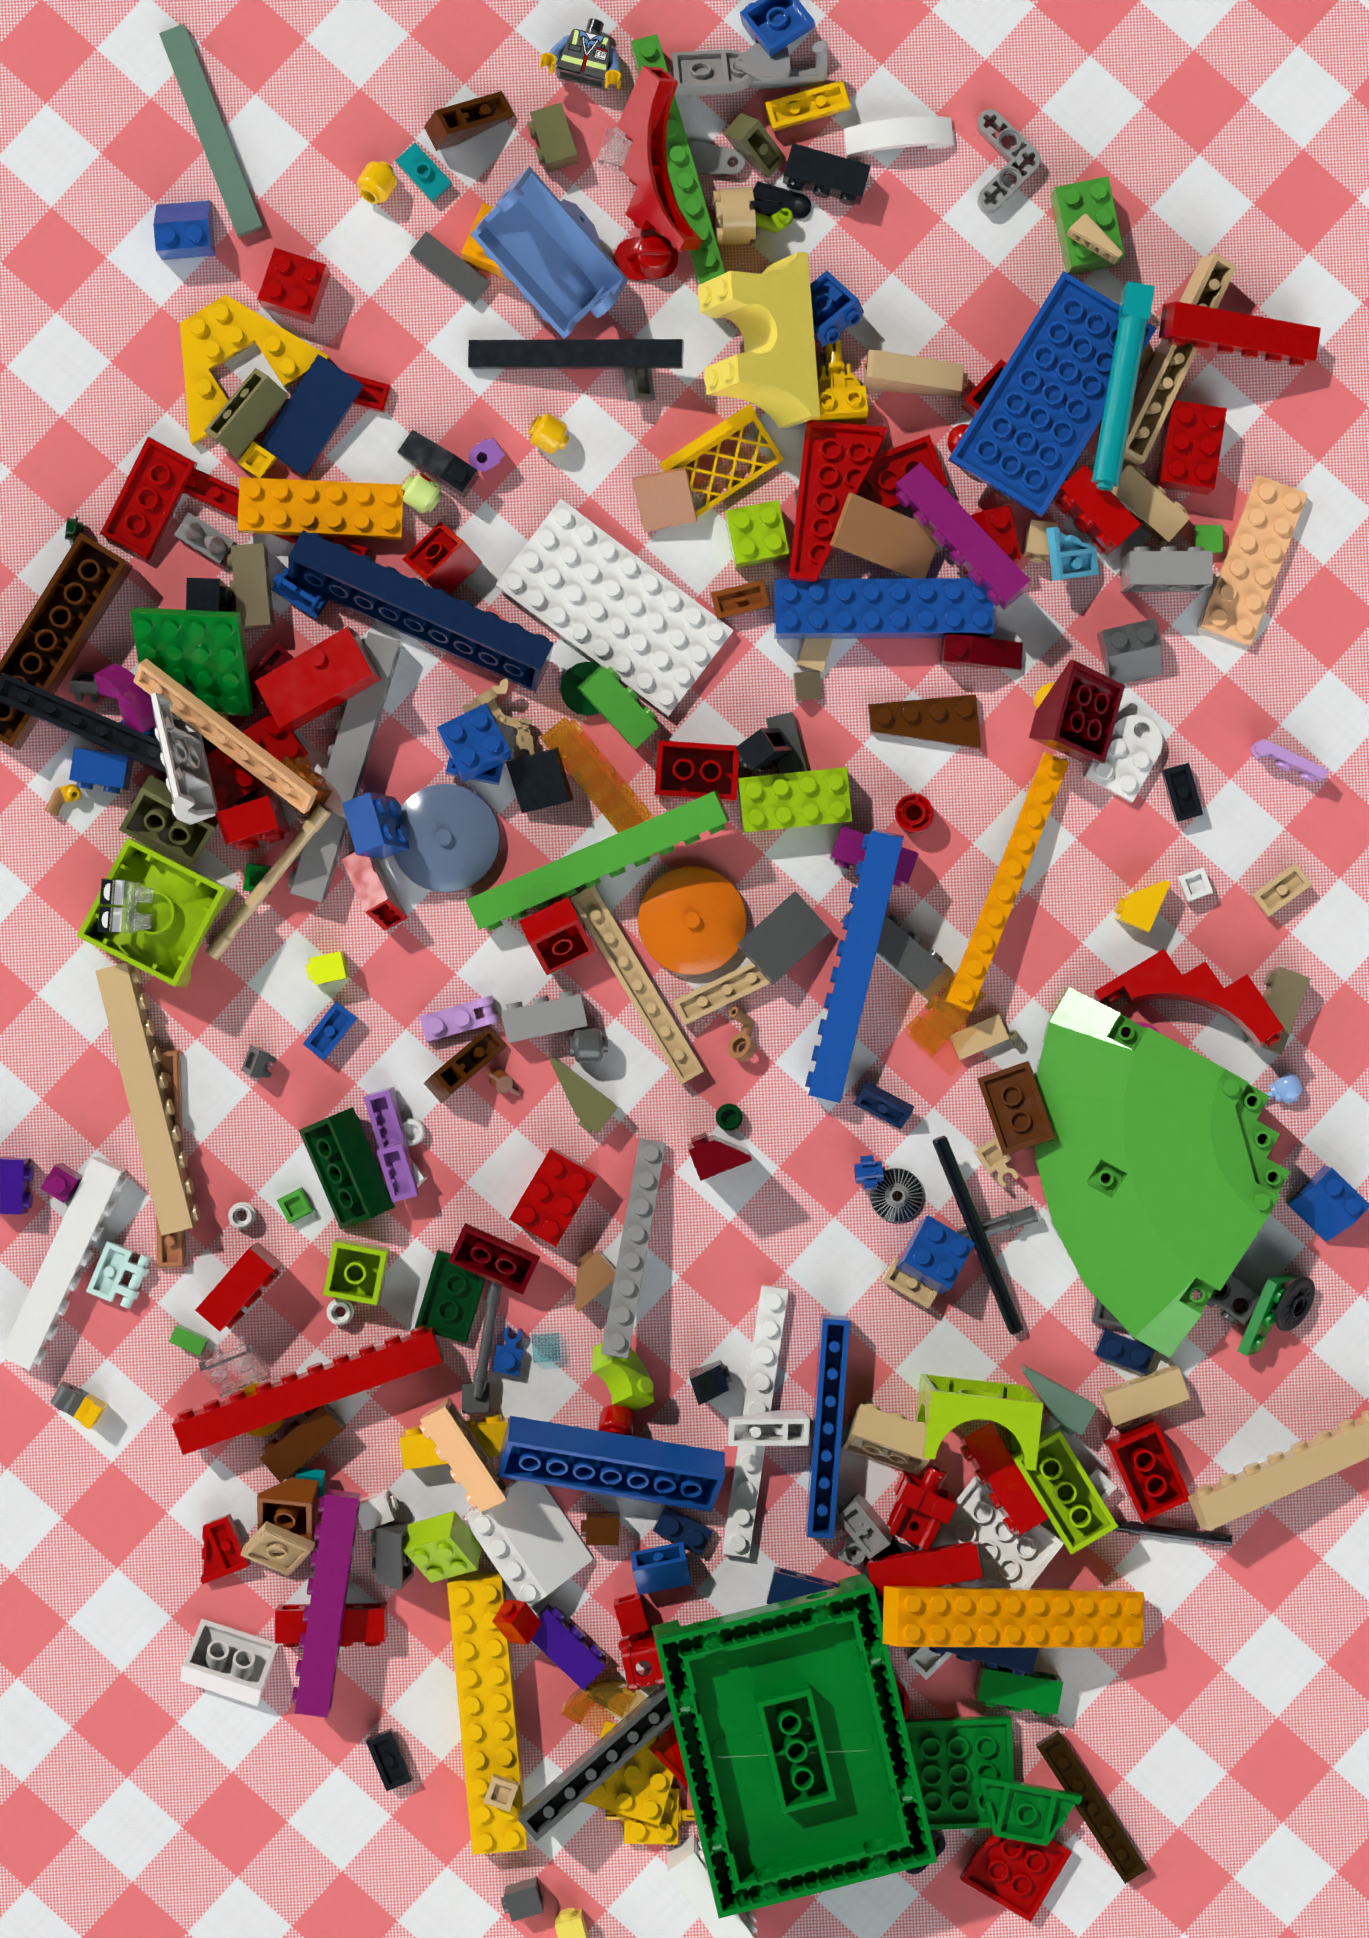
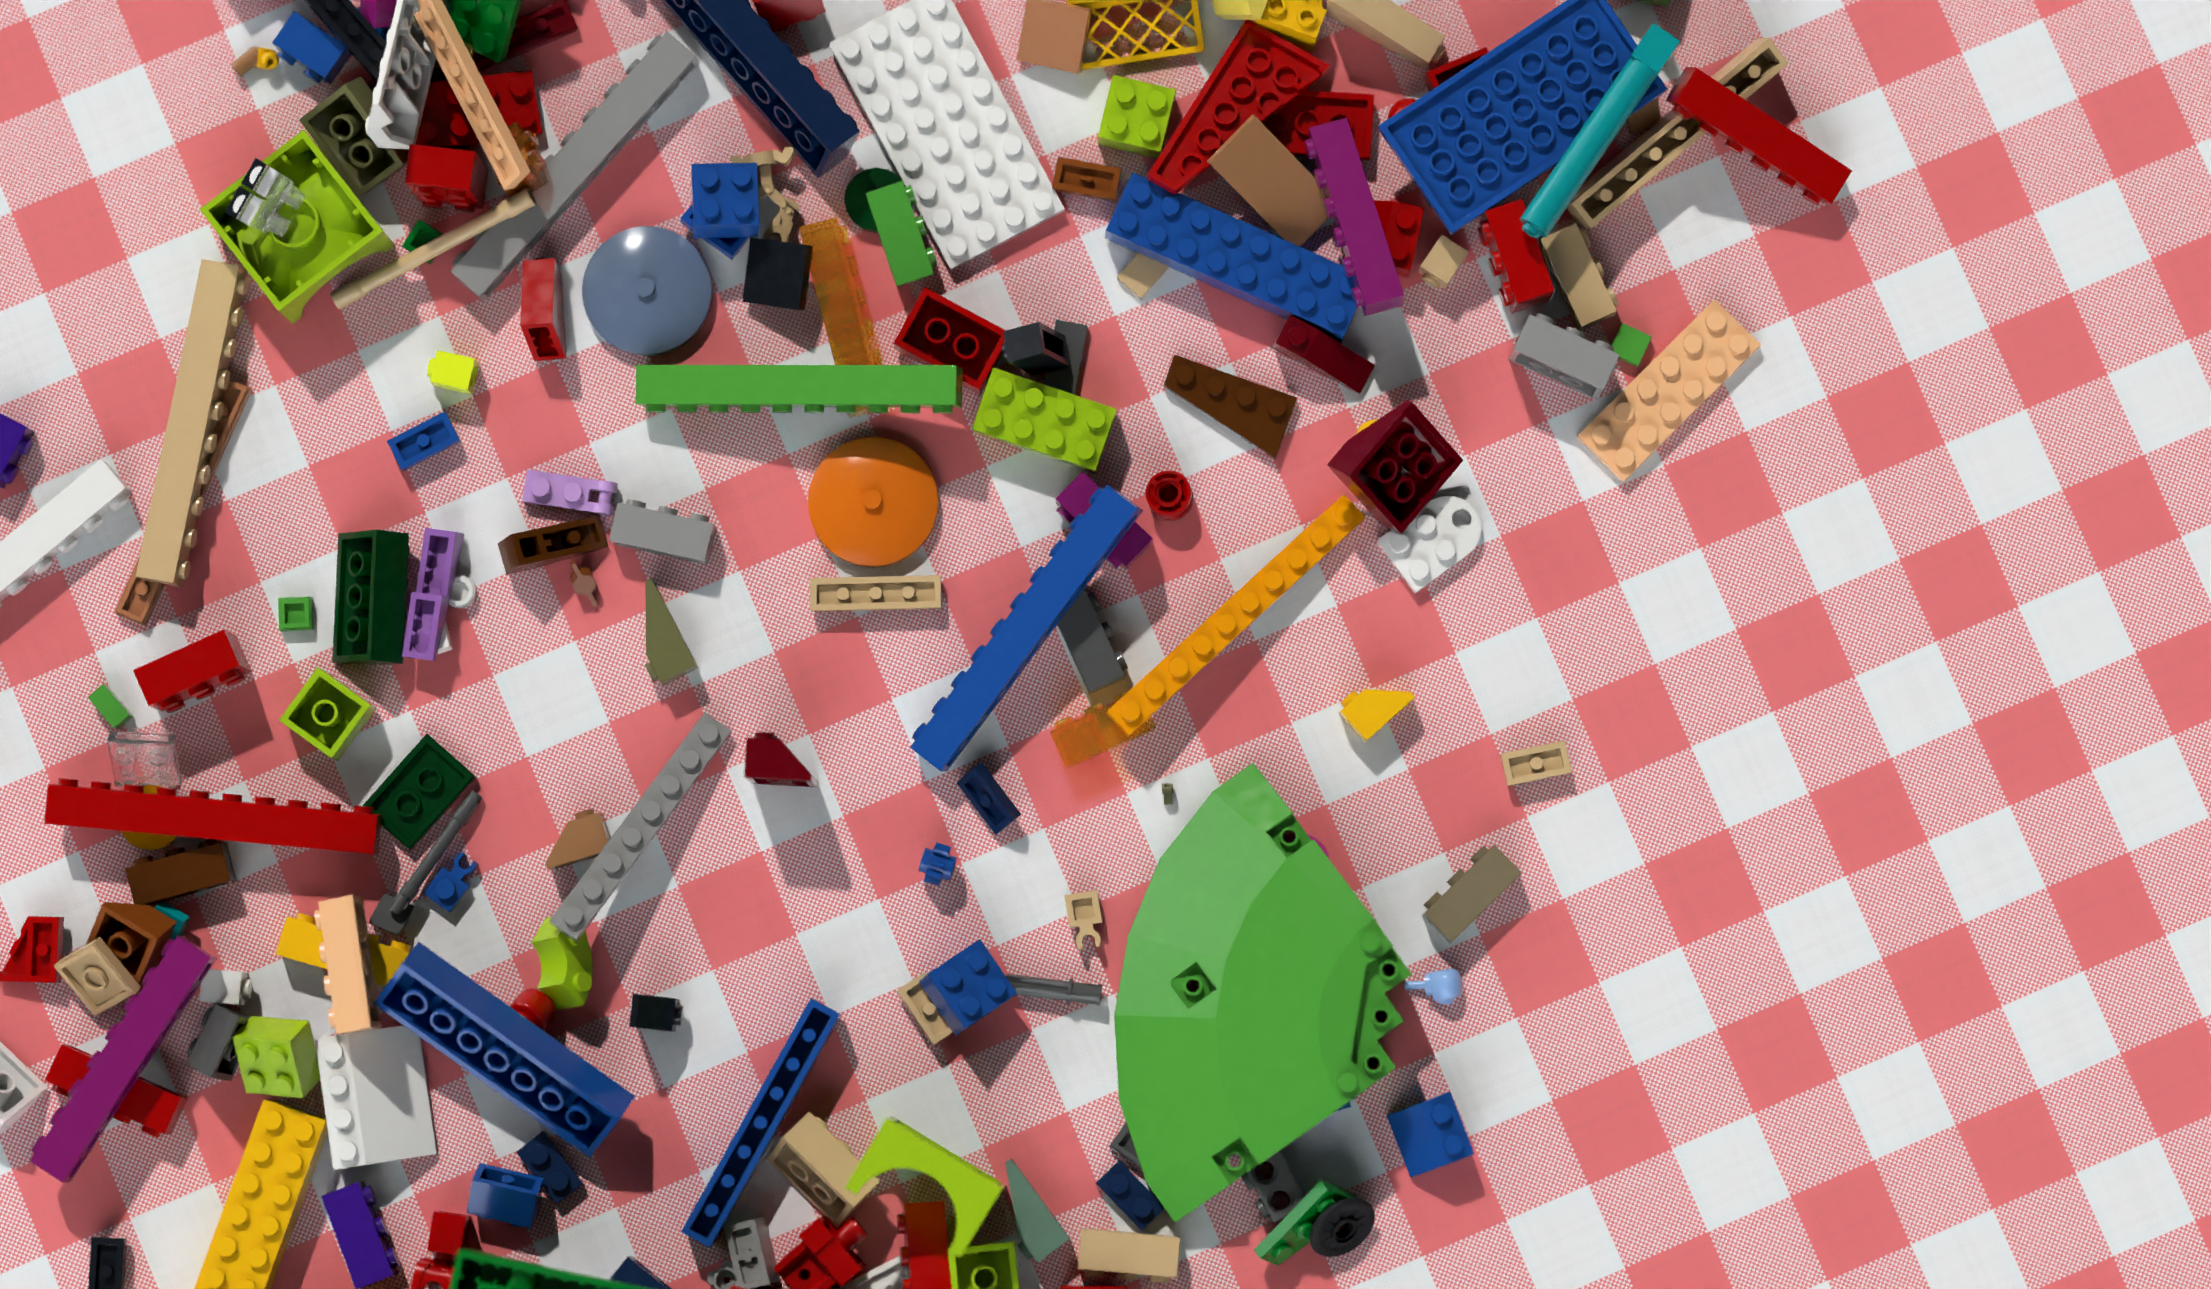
camera: 25 degrees right, 5 degrees down
(62, 1182) = (55, 470): magenta brick -> none
(110, 1272) = (61, 593): light aqua plate -> none
(234, 1219) = (223, 594): white plate -> none
(255, 1062) = (328, 436): dark grey tile -> none
(318, 680) = (588, 57): red brick -> none
(334, 1317) = (279, 749): white plate -> none
(376, 825) = (577, 240): blue brick -> none
(494, 1258) = (483, 767): dark red slope -> none
(516, 1622) = (319, 1176): red brick -> none
(546, 1347) = (495, 895): clear light blue plate -> none
(553, 1196) = (580, 731): red brick -> none
(557, 936) = (716, 448): red brick -> none
(588, 1045) = (695, 583): dark grey head -> none
(601, 1528) = (460, 1122): reddish brown brick -> none
(637, 984) = (780, 543): tan plate -> none
(729, 1116) = (813, 734): dark green plate -> none
(742, 1045) = (864, 662): medium nougat plate -> none
(757, 1400) = (685, 1083): white plate -> none
(770, 1429) = (694, 1093): white slope -> none
(783, 938) = (963, 565): dark grey tile -> none
(807, 686) = (1117, 305): dark tan slope -> none
(897, 1180) = (970, 918): dish -> none
(977, 1234) = (1025, 987): black axle -> none
(979, 1037) = (1128, 772): tan tile -> none
(1016, 1108) = (1132, 867): reddish brown plate -> none
(1070, 556) = (1466, 293): medium azure wing -> none
(1131, 651) = (1488, 428): dark grey slope -> none
(1161, 979) = (1354, 798): red arch -> none
(1182, 792) = (1474, 606): black plate -> none
(1191, 447) = (1653, 236): red brick -> none
(1194, 884) = (1443, 713): white plate -> none
(1288, 760) = (1606, 623): lavender plate -> none

